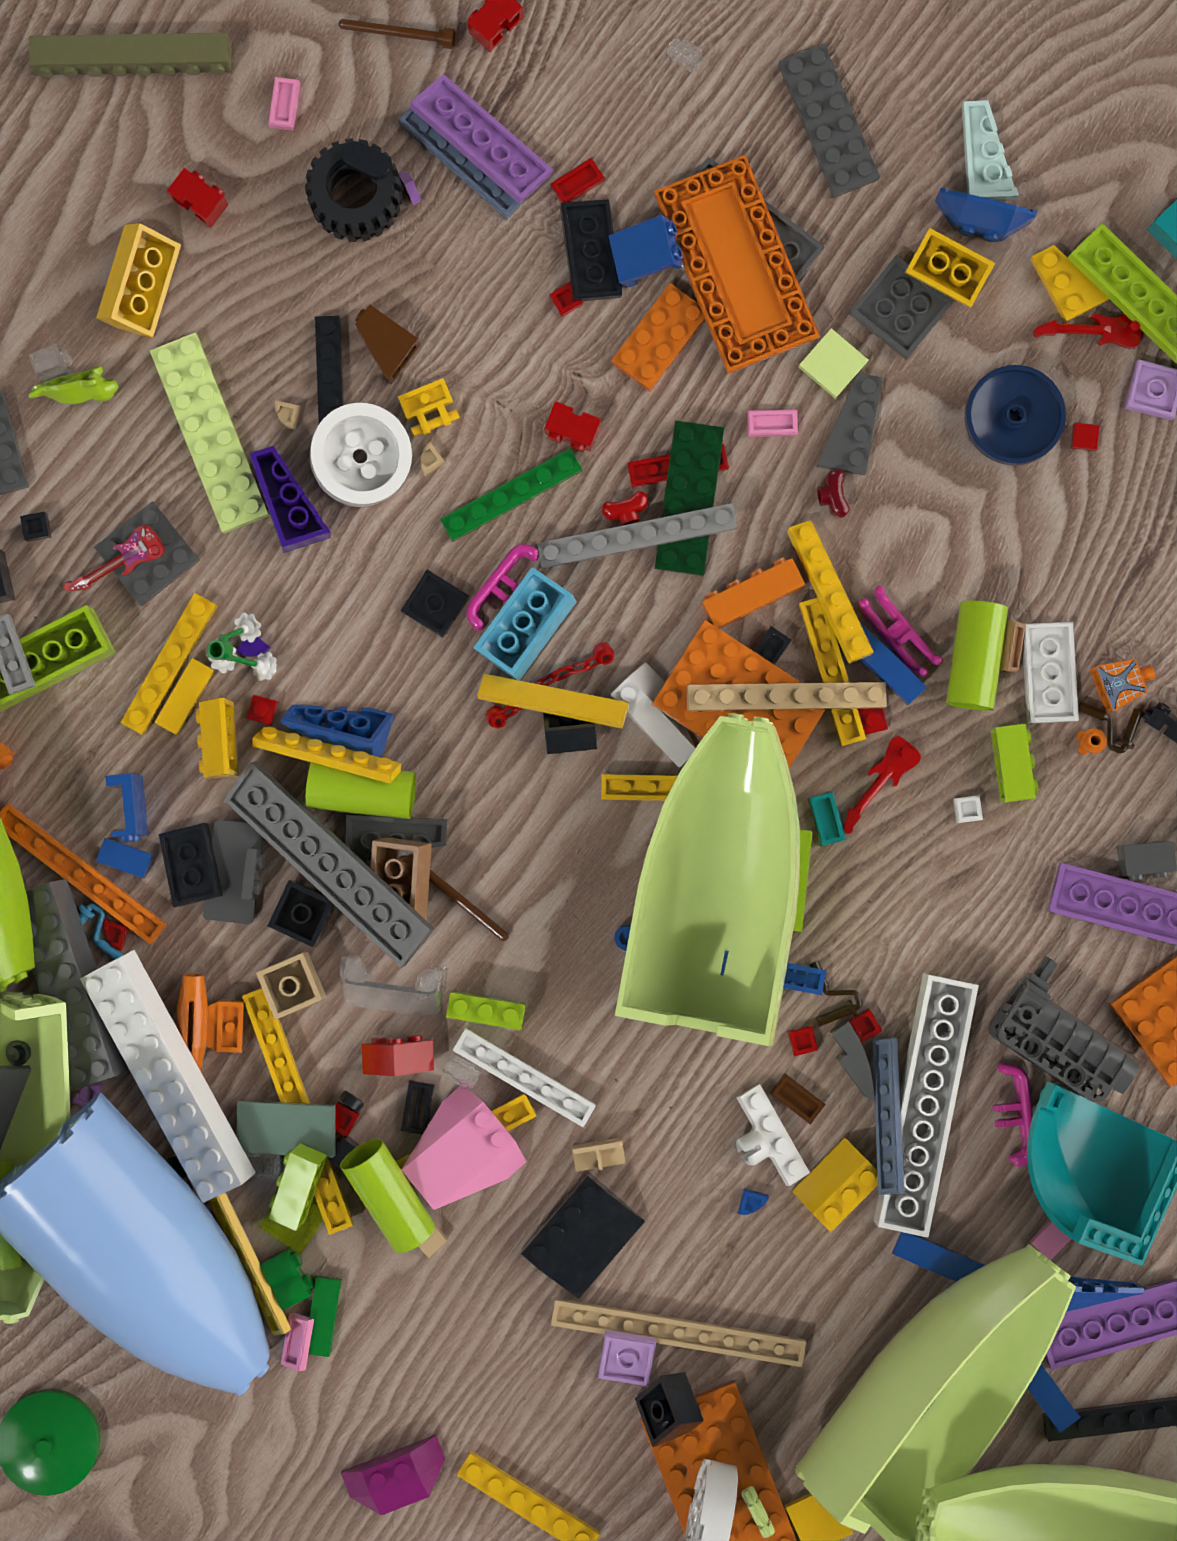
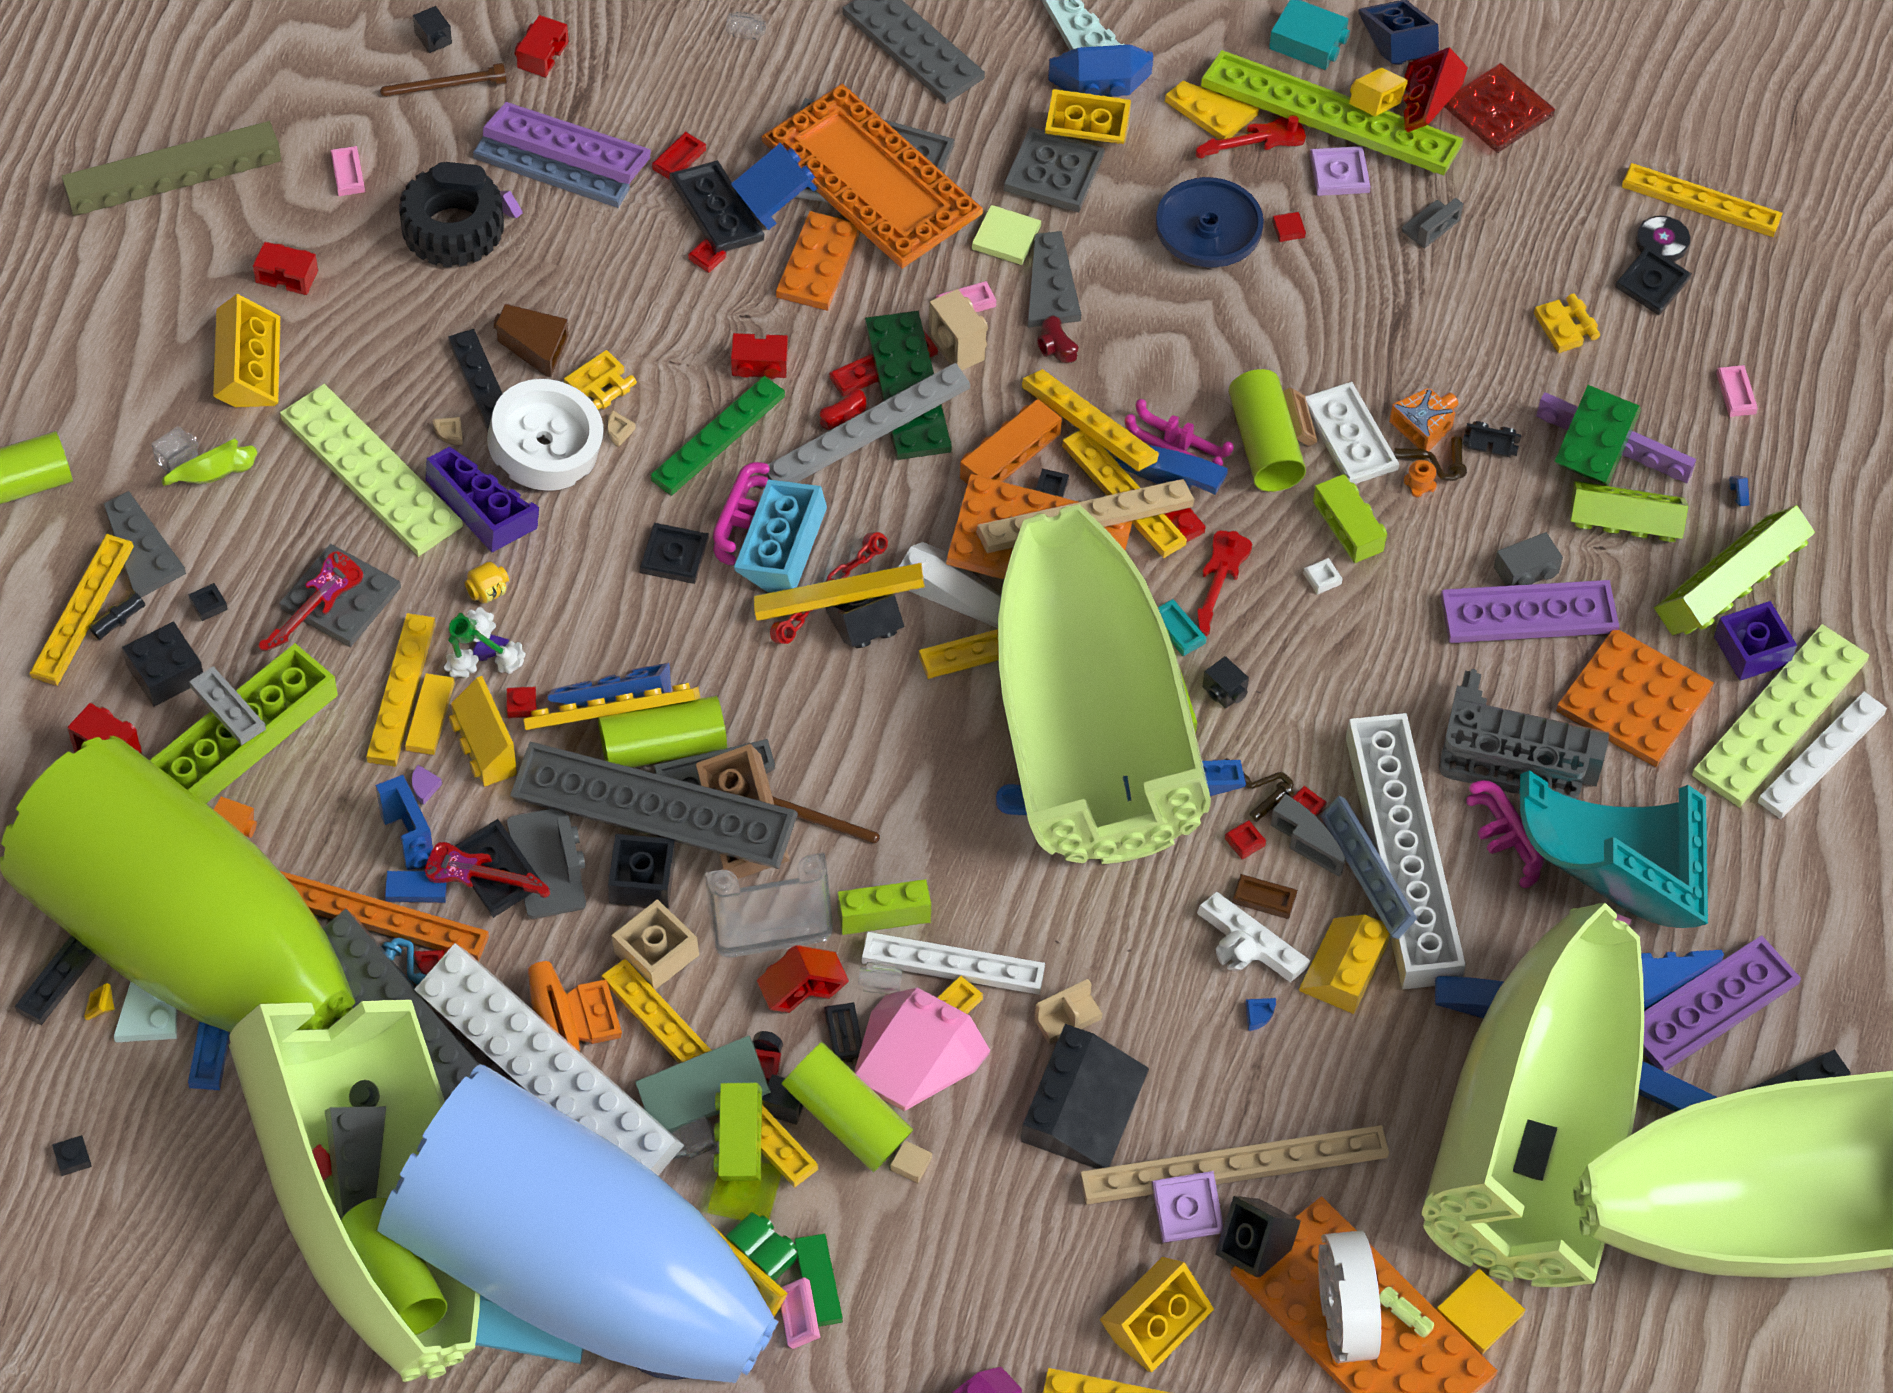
camera: 20 degrees left, 30 degrees down
(153, 853) = (451, 864): none -> red piece
(159, 763) = (424, 784): none -> medium lavender tile
(267, 586) = (486, 582): none -> yellow head
(568, 1438) = (1157, 1313): none -> yellow slope
(749, 462) = (957, 329): none -> tan brick
(843, 892) = (1225, 682): none -> black brick

